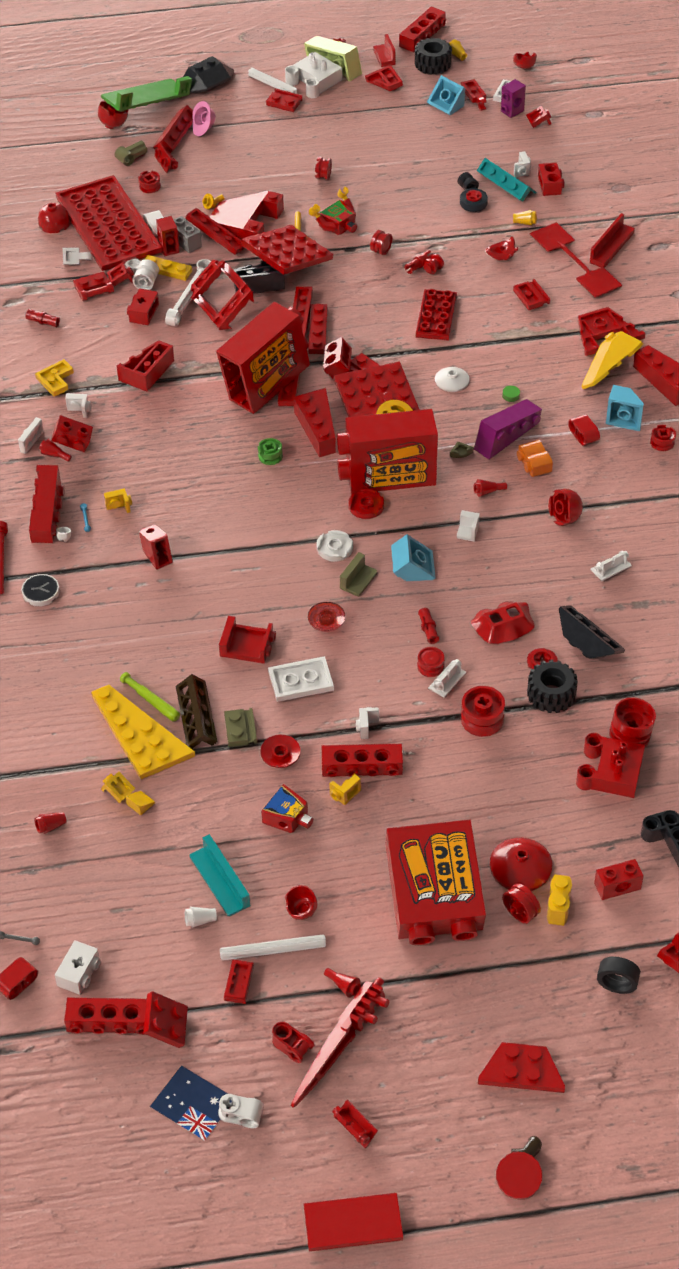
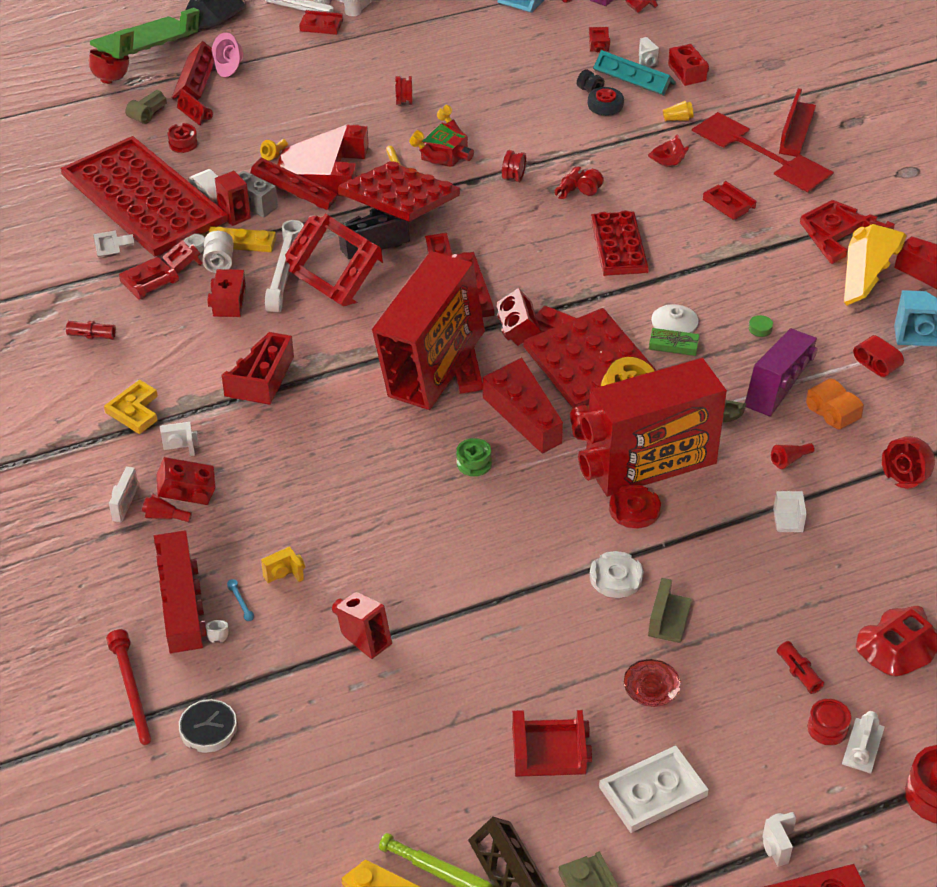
camera: 15 degrees left, 5 degrees down
(53, 218) = (67, 199): red cylinder -> none
(412, 560) = (736, 575): medium azure slope -> none
(443, 394) = (674, 341): none -> bright green tile
(490, 147) = (599, 39): none -> red bracket

